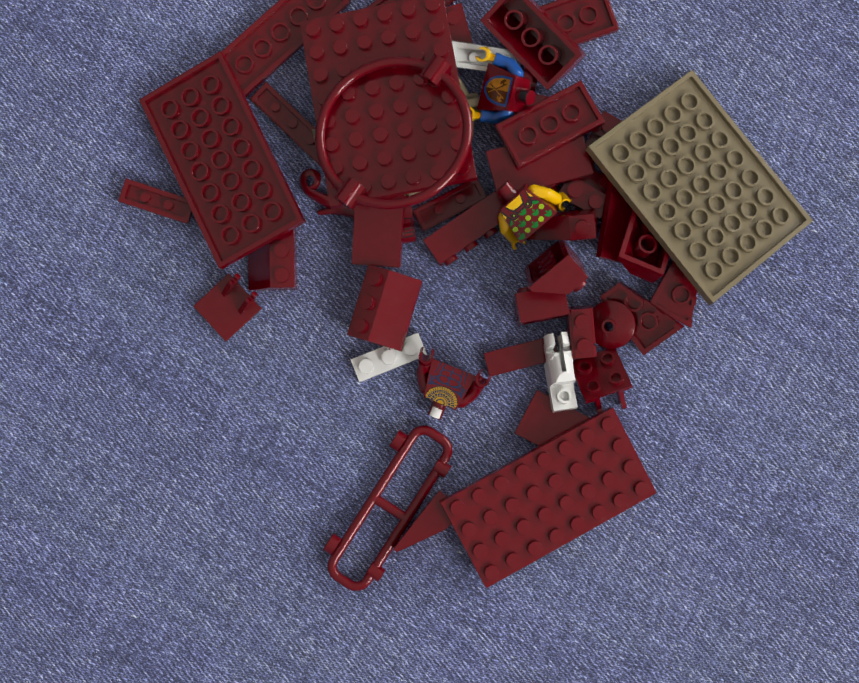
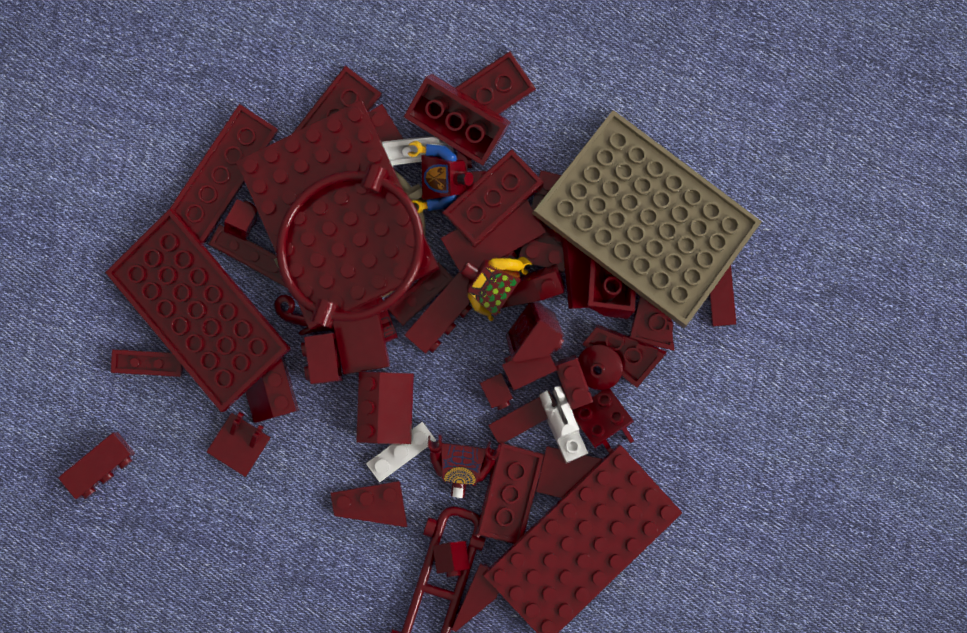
camera: 10 degrees left, 0 degrees up
(80, 291) = (97, 466): none -> dark red brick
(289, 82) = (241, 219): none -> dark red brick
(334, 242) = (322, 359): none -> dark red brick
(345, 401) = (372, 503): none -> dark red wing
(412, 476) = (451, 558): none -> dark red brick
(487, 428) = (510, 494): none -> dark red tile
(501, 322) = (497, 392): none -> dark red brick
(752, 291) = (722, 301): none -> dark red tile

